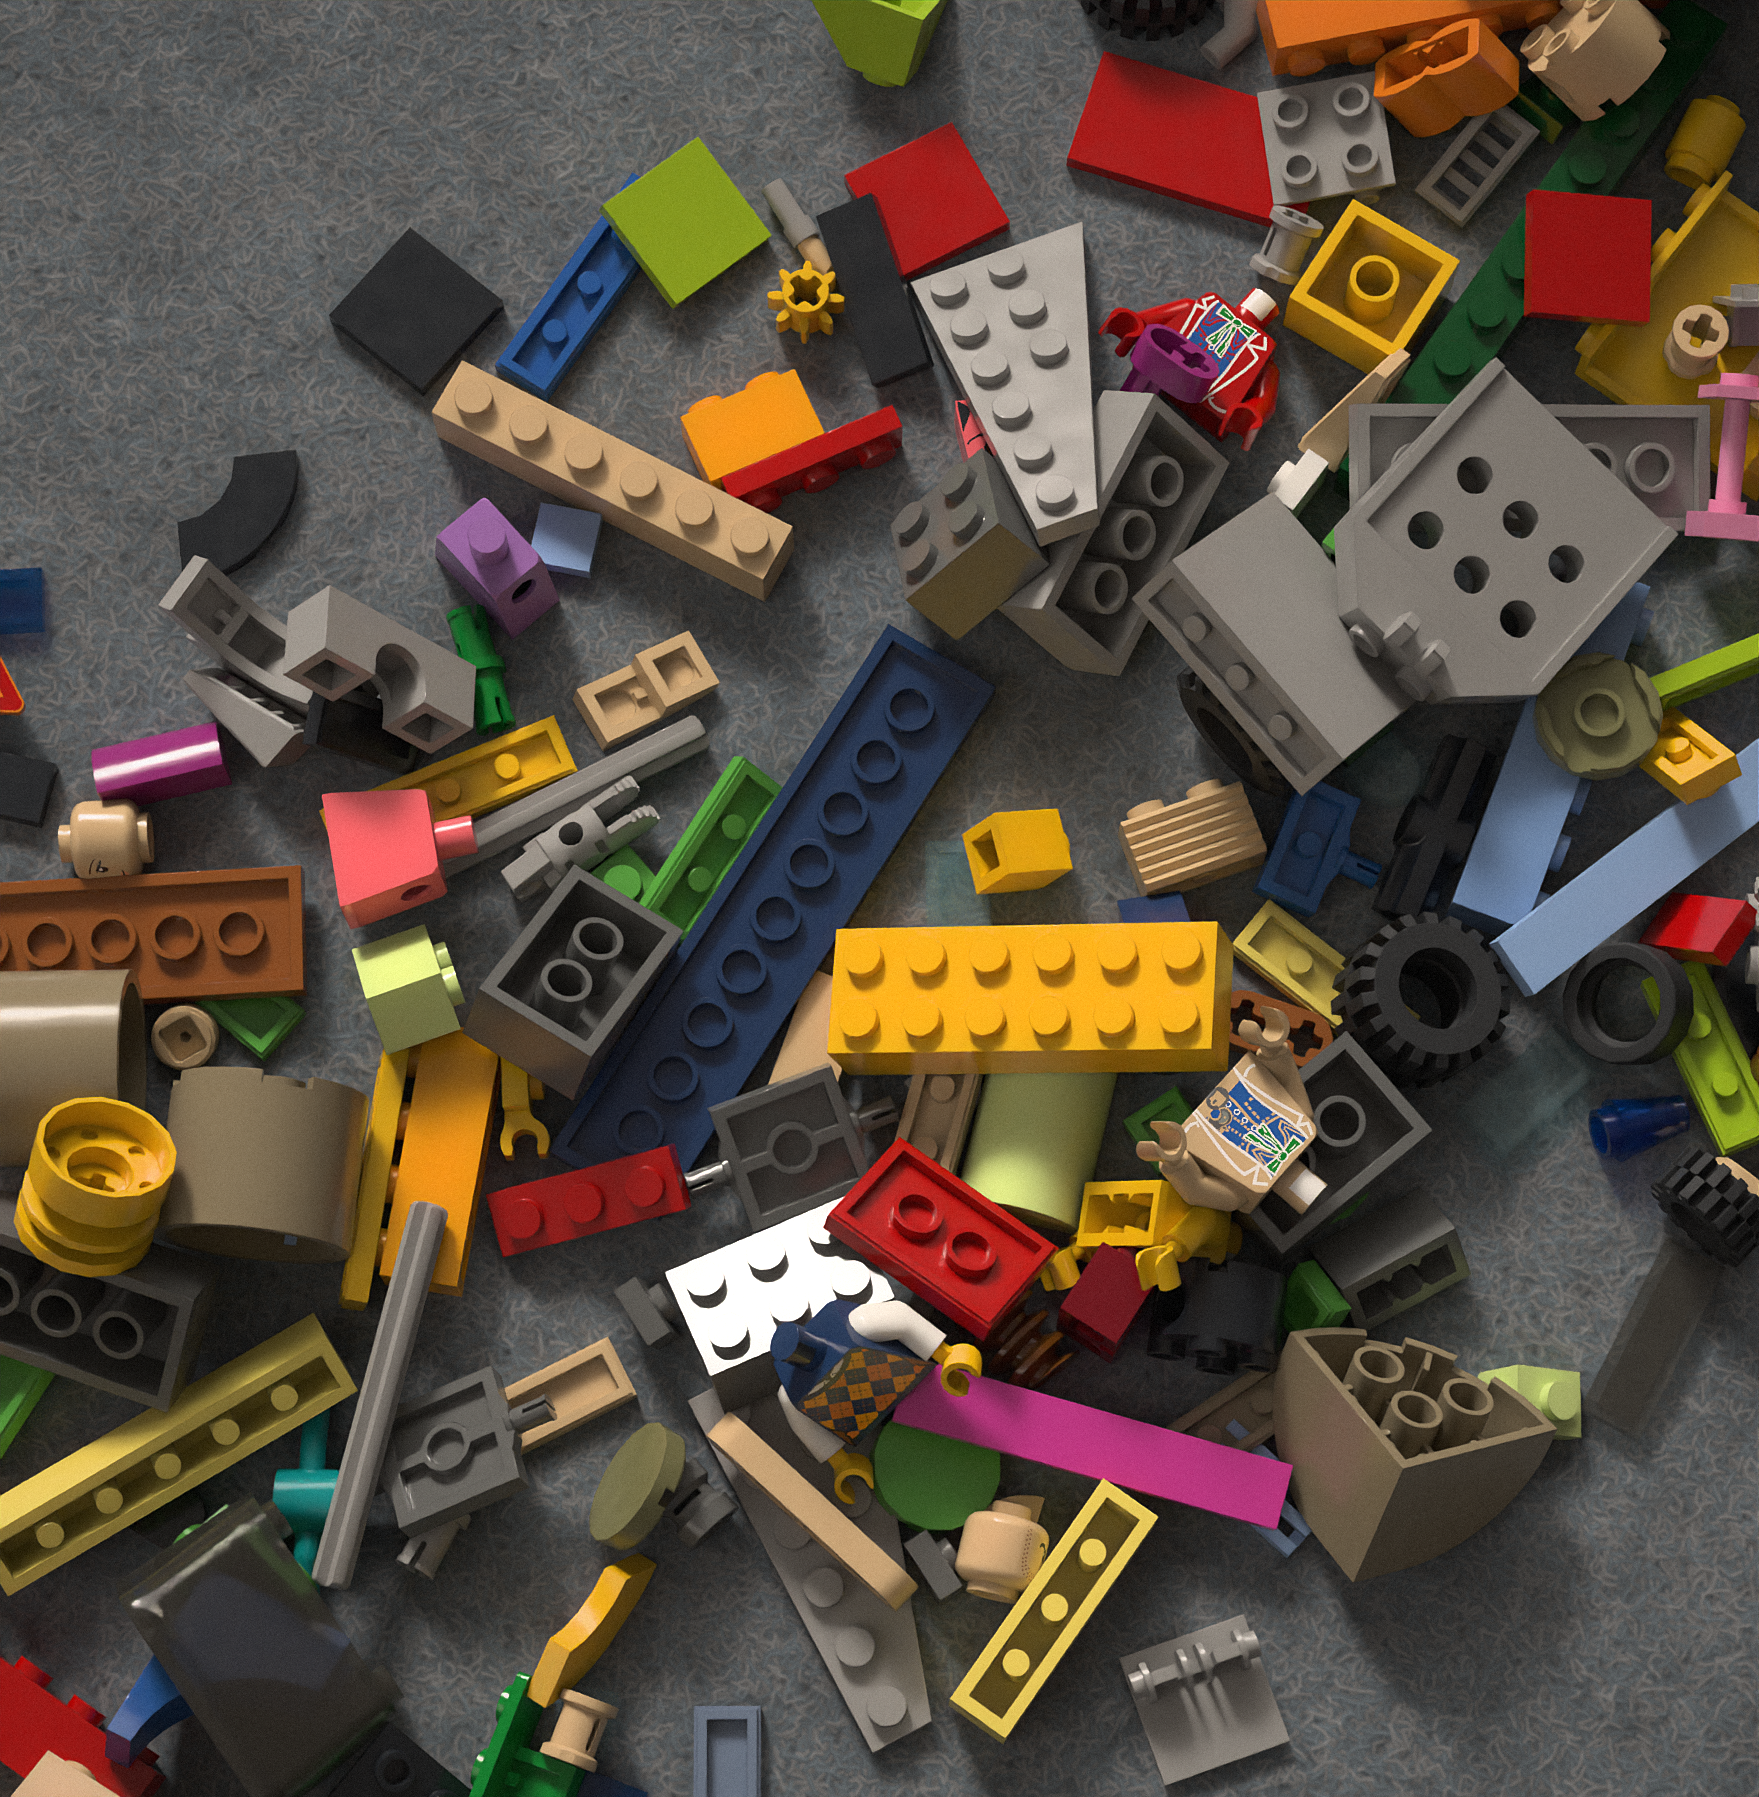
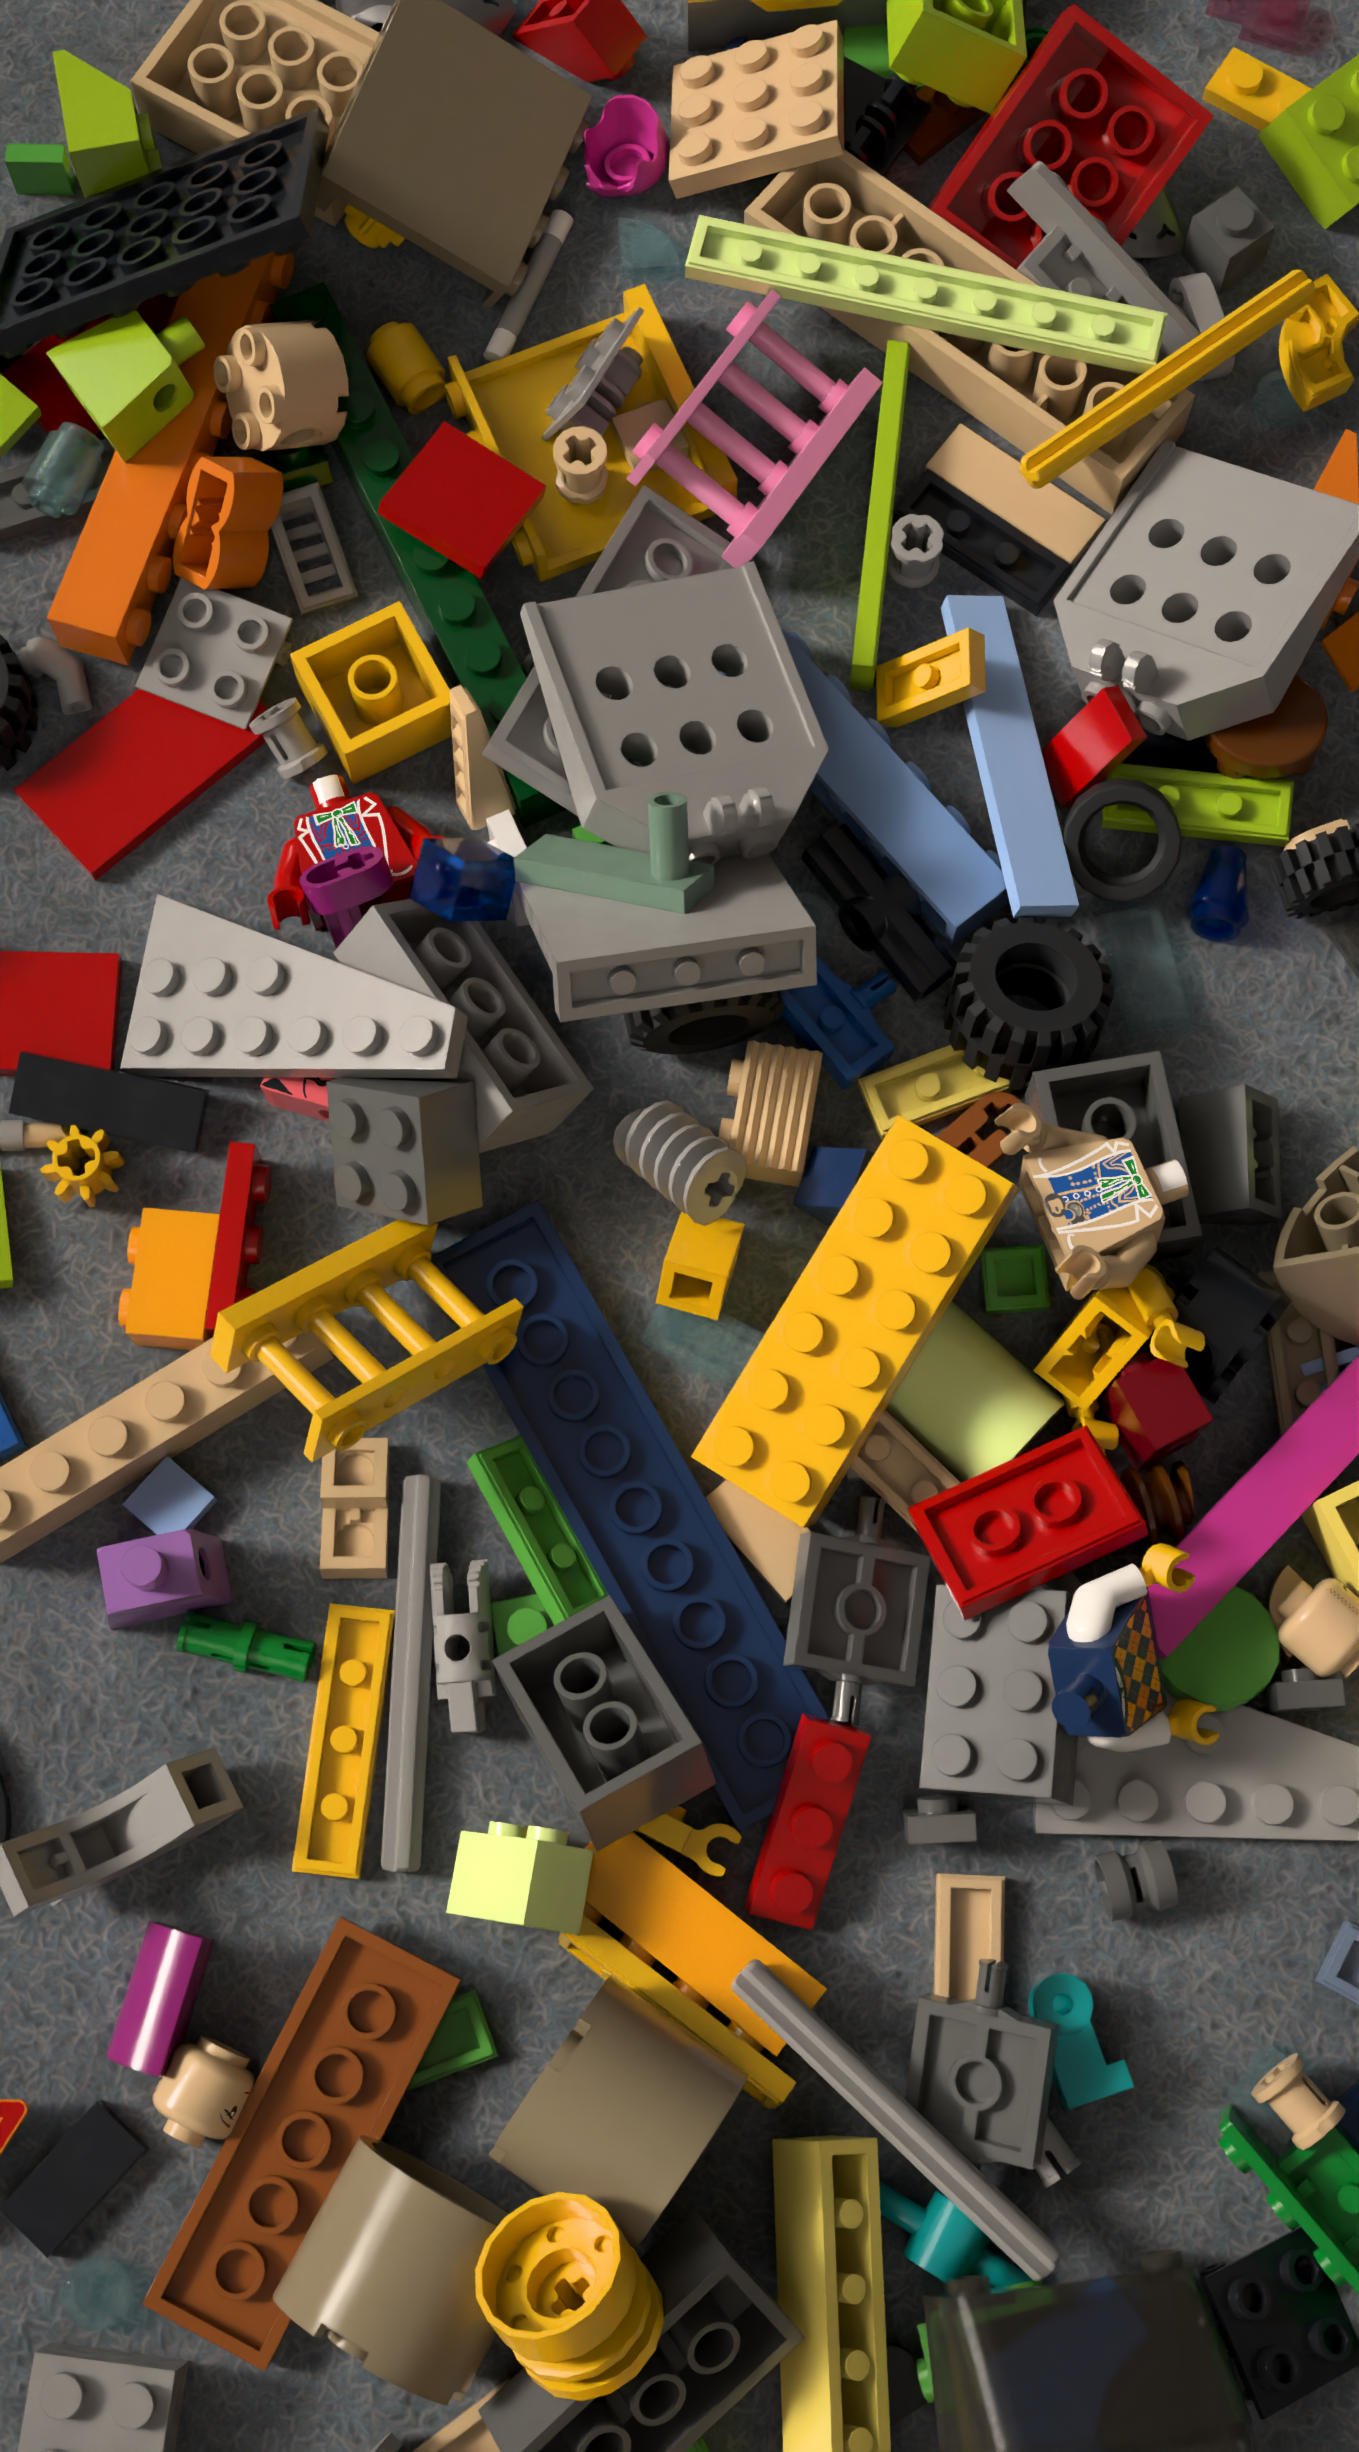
camera: 60 degrees left, 0 degrees up
(185, 1036) = (436, 2118): tan tile -> none
(257, 721) = (173, 1882): light grey slope -> none
(342, 643) = (168, 1756): light grey arch -> none
(355, 731) = (243, 1785): black tile -> none
(390, 851) = (378, 1823): coral torso -> none
(526, 1520) = (1079, 2064): none -> teal leg
(591, 1630) = (1205, 2040): yellow tile -> none
(633, 1484) = (1100, 1923): olive tile -> none
(812, 555) = (357, 1278): none -> yellow fence
(812, 1511) = (1207, 1775): tan beam -> none
(1096, 783) = (681, 1160): none -> light grey piece
(1230, 457) = (464, 879): none -> clear blue brick
(1312, 596) = (652, 879): none -> sand green piece
(1312, 1300) = (1244, 1237): bright green tile -> none
(1598, 717) = (868, 719): olive tile -> none

